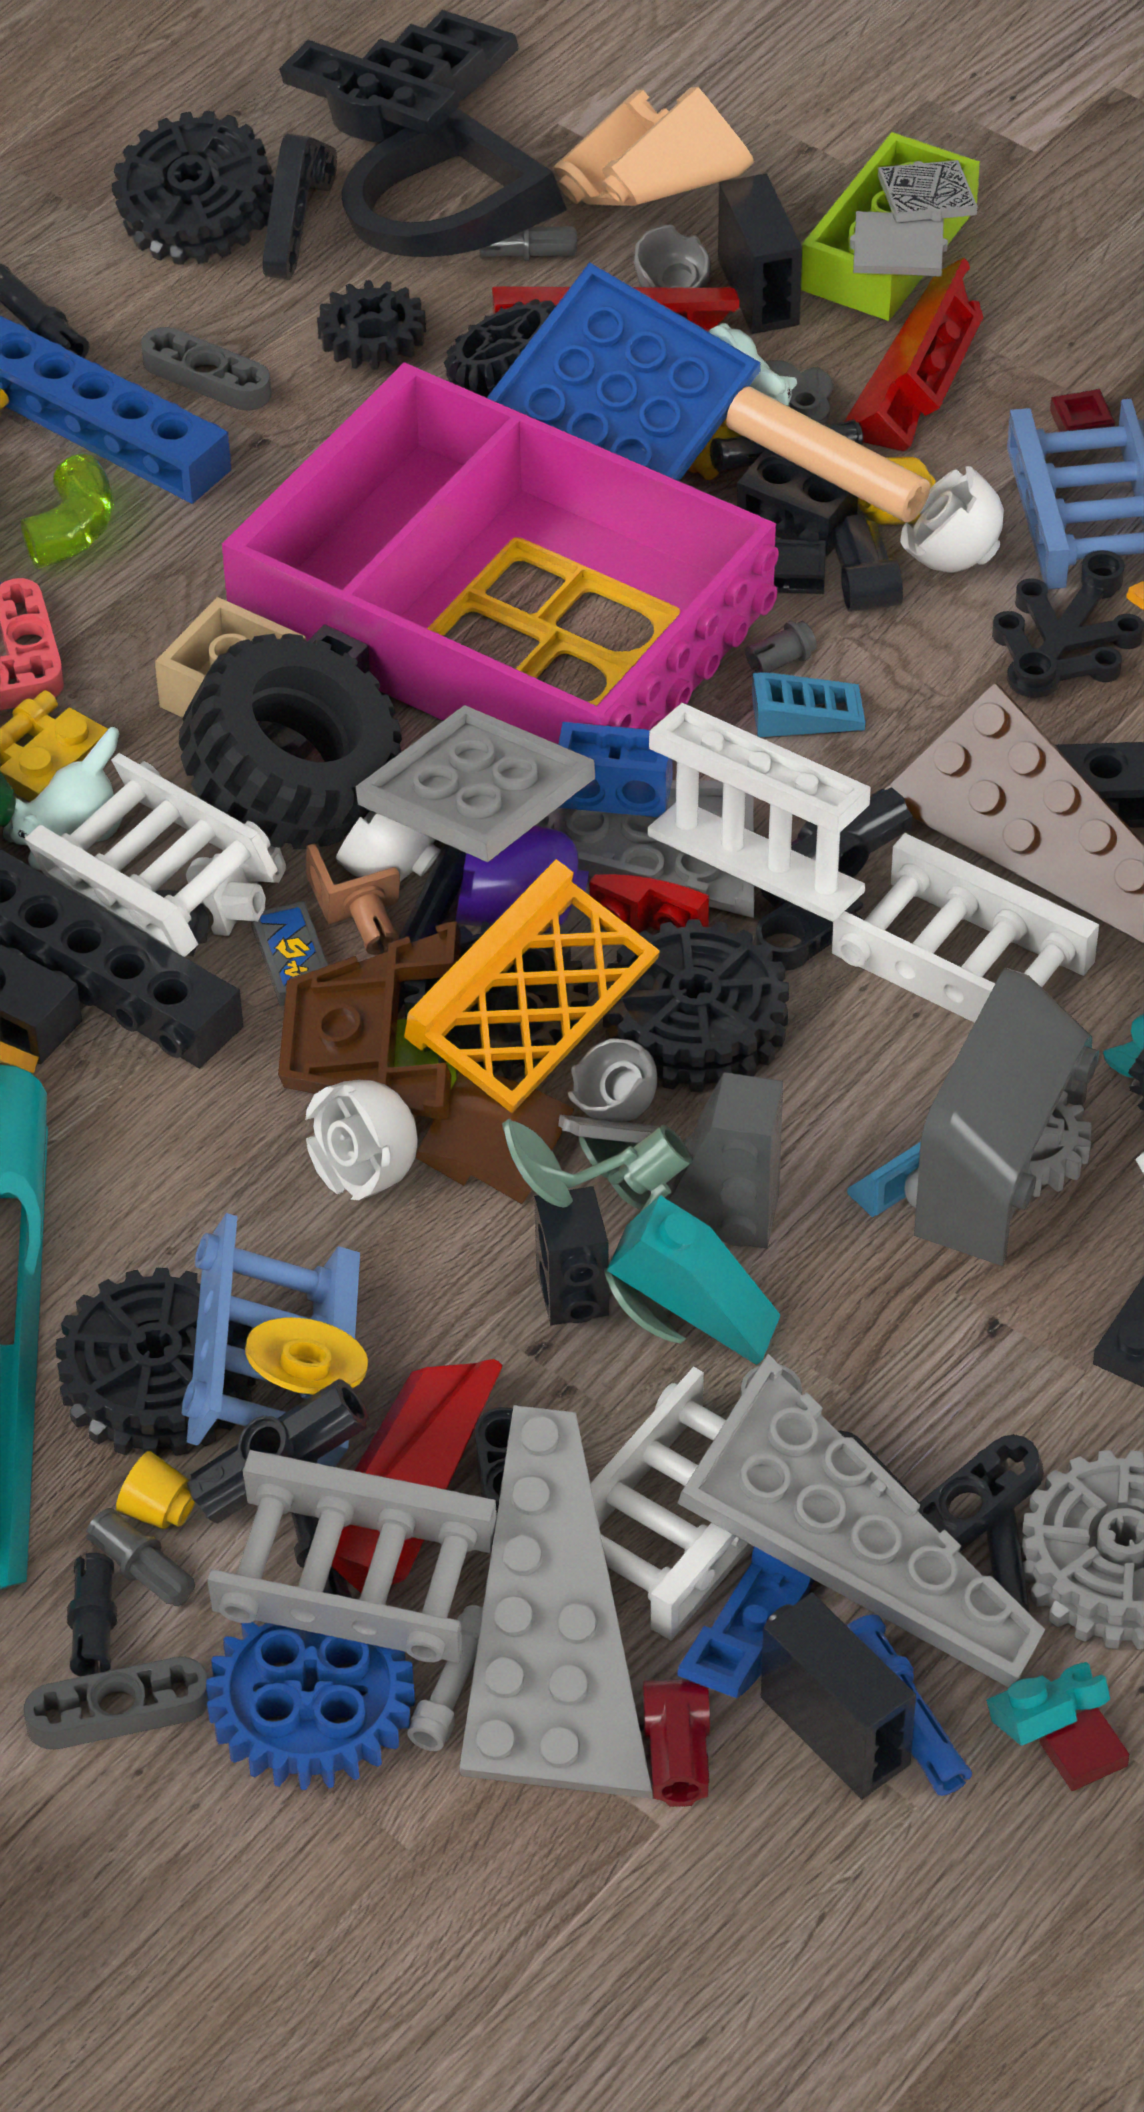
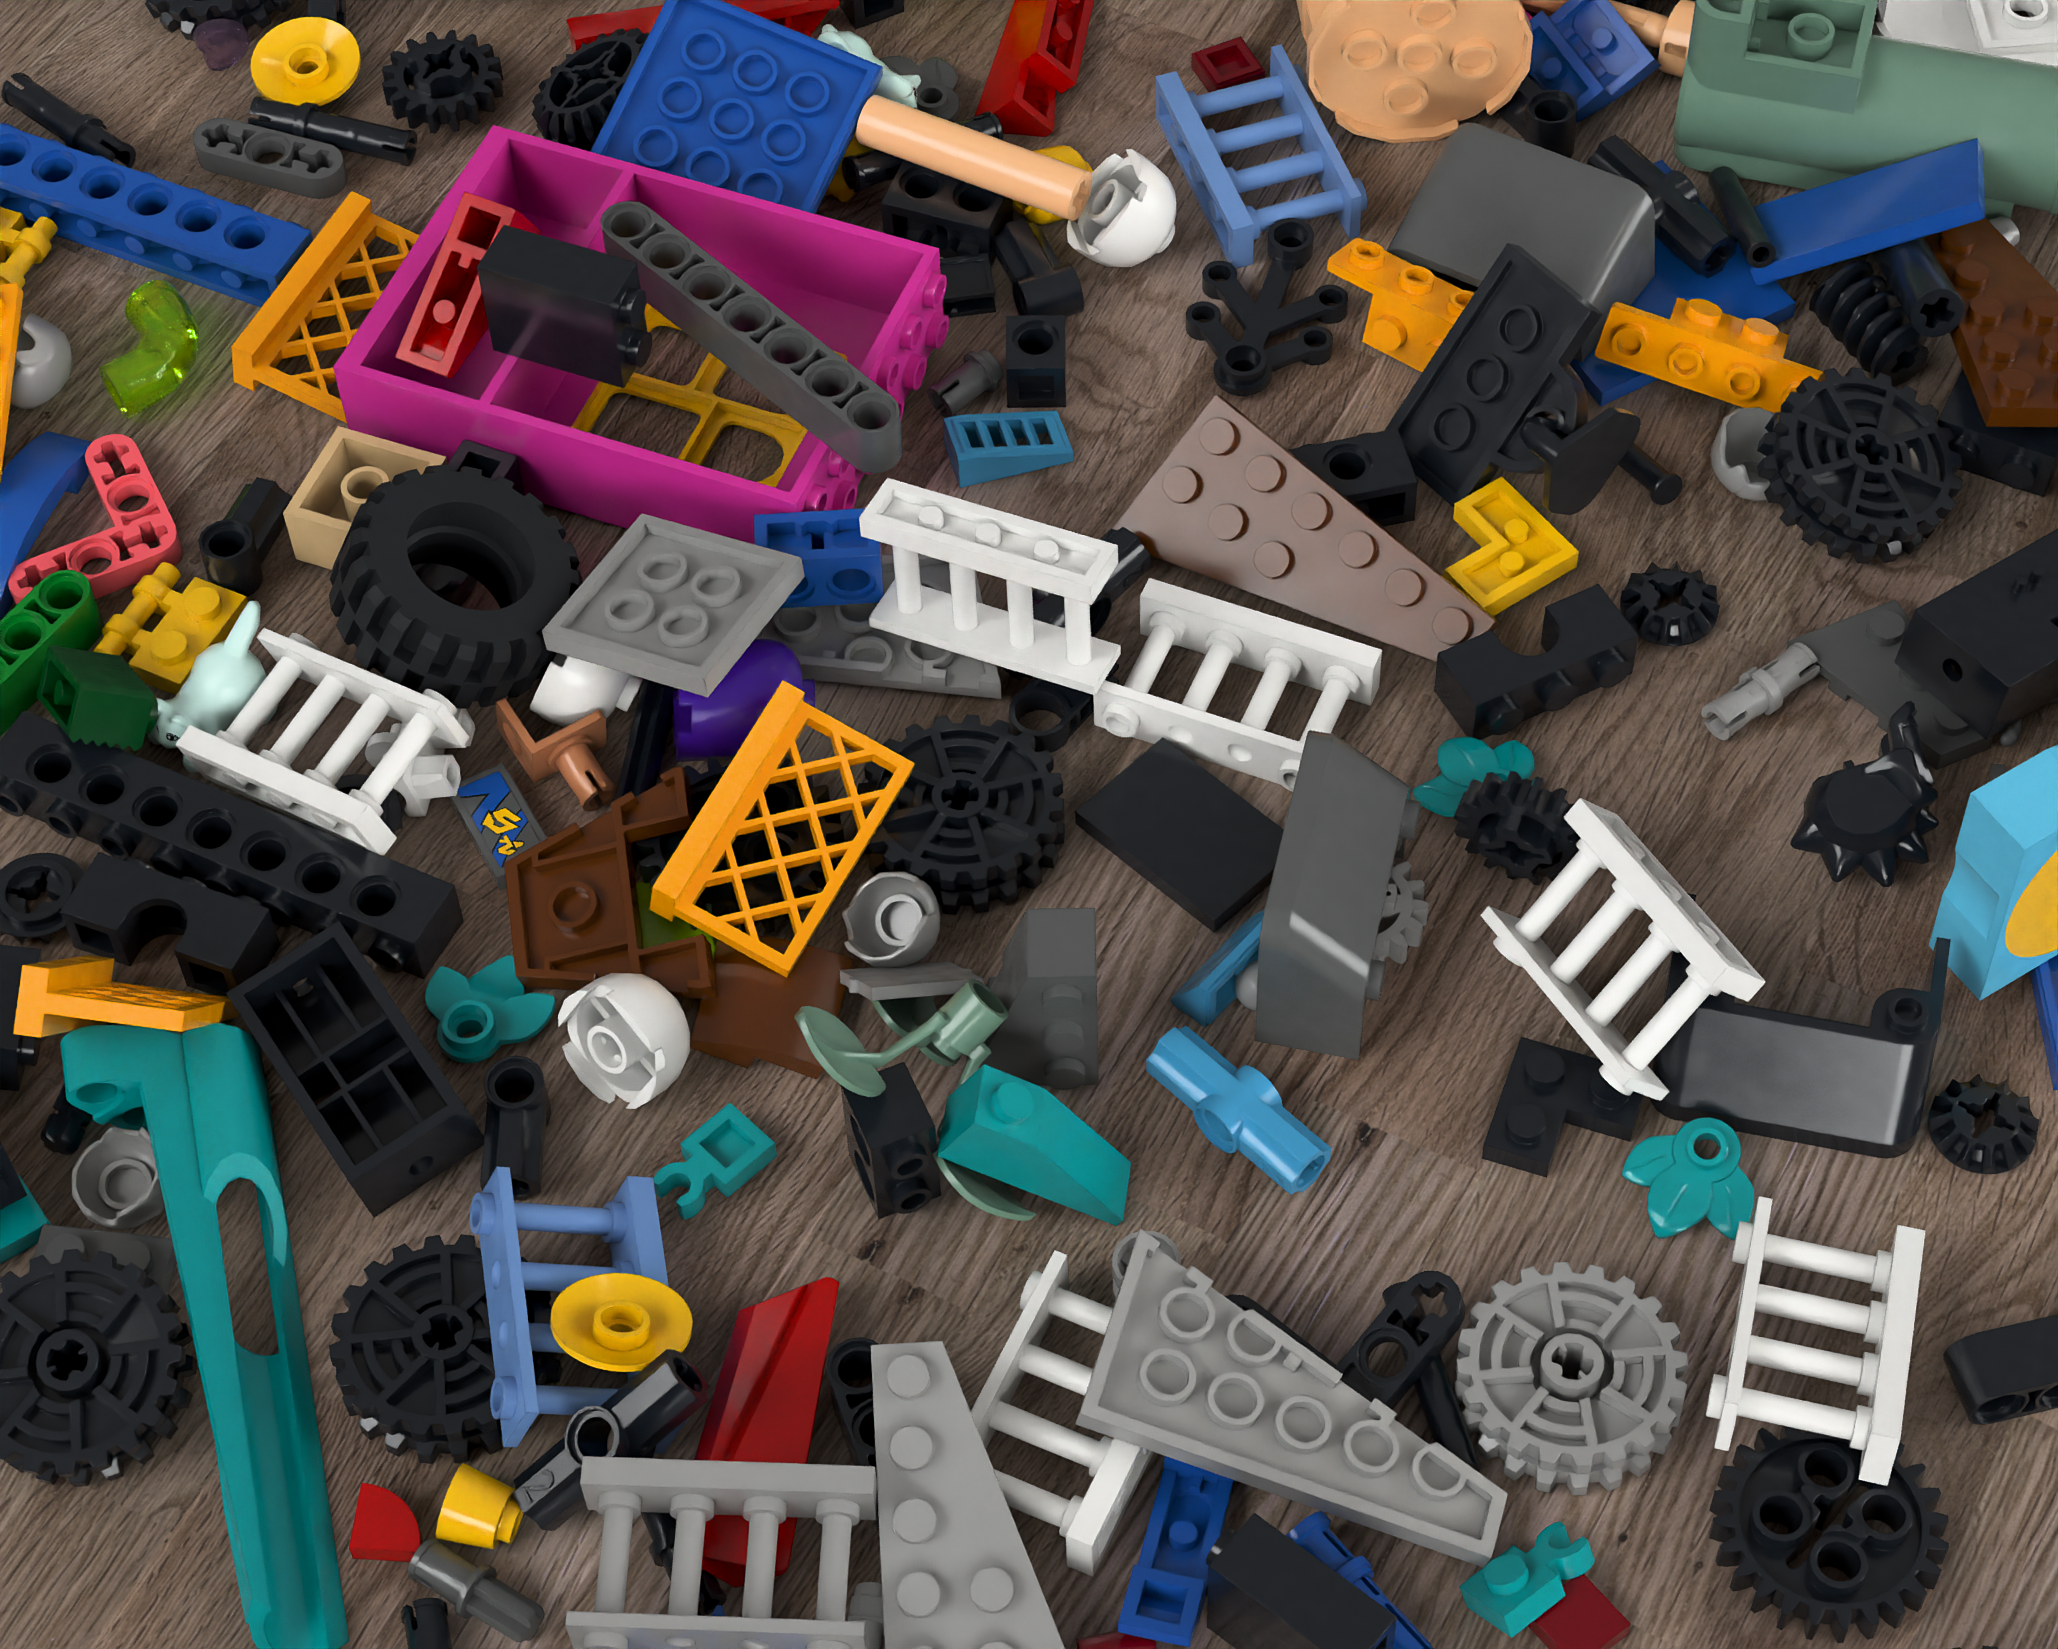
camera: 10 degrees left, 5 degrees up
(72, 1495) = (383, 1527): none -> red tile
(113, 684) = (241, 541): none -> black piece
(126, 1126) = (395, 1110): none -> black brick
(183, 264) = (221, 42): none -> clear purple piece
(211, 489) = (304, 297): none -> light orange fence
(245, 1100) = (487, 1004): none -> teal plate
(253, 291) = (302, 46): none -> yellow dish
(254, 1190) = (515, 1130): none -> black piece
(268, 352) = (334, 129): none -> black pin
(353, 489) = (451, 306): none -> red slope
(421, 1247) = (717, 1154): none -> teal plate
(431, 519) = (564, 306): none -> black brick
(592, 571) = (757, 339): none -> dark grey beam
(648, 901) = (882, 702): red slope -> none
(848, 638) = (1036, 361): none -> black brick
(883, 1050) = (1185, 833): none -> black tile
(883, 1285) = (1238, 1109): none -> dark azure piece

